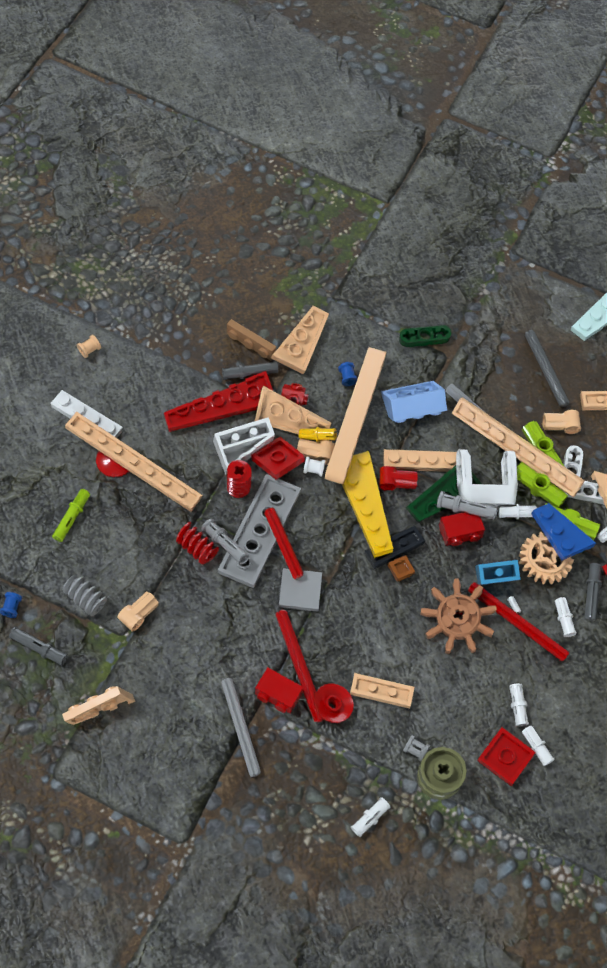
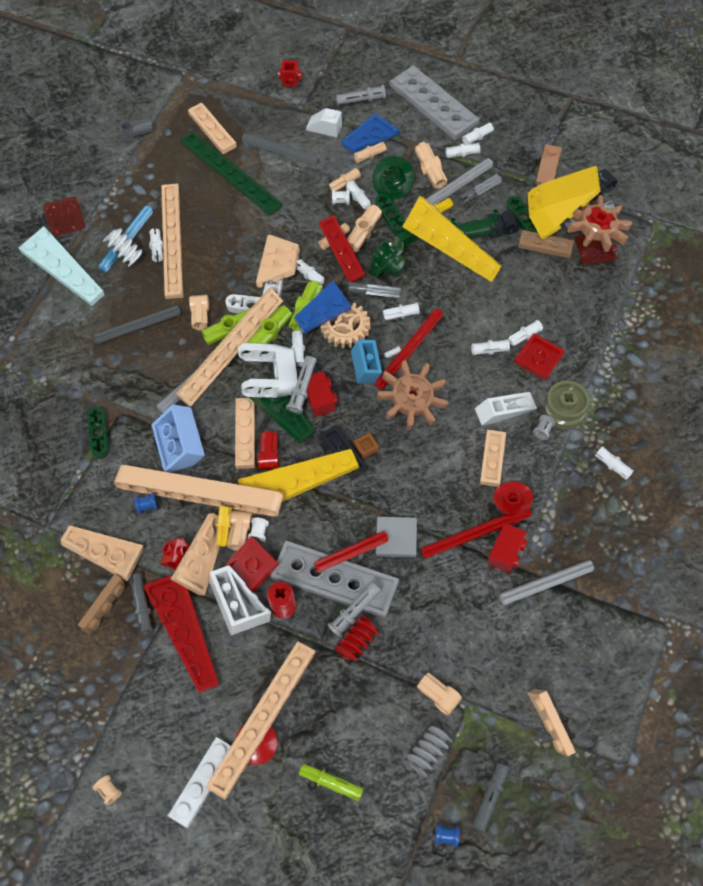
camera: 85 degrees left, 0 degrees up
(441, 711) = (504, 407): none -> white slope

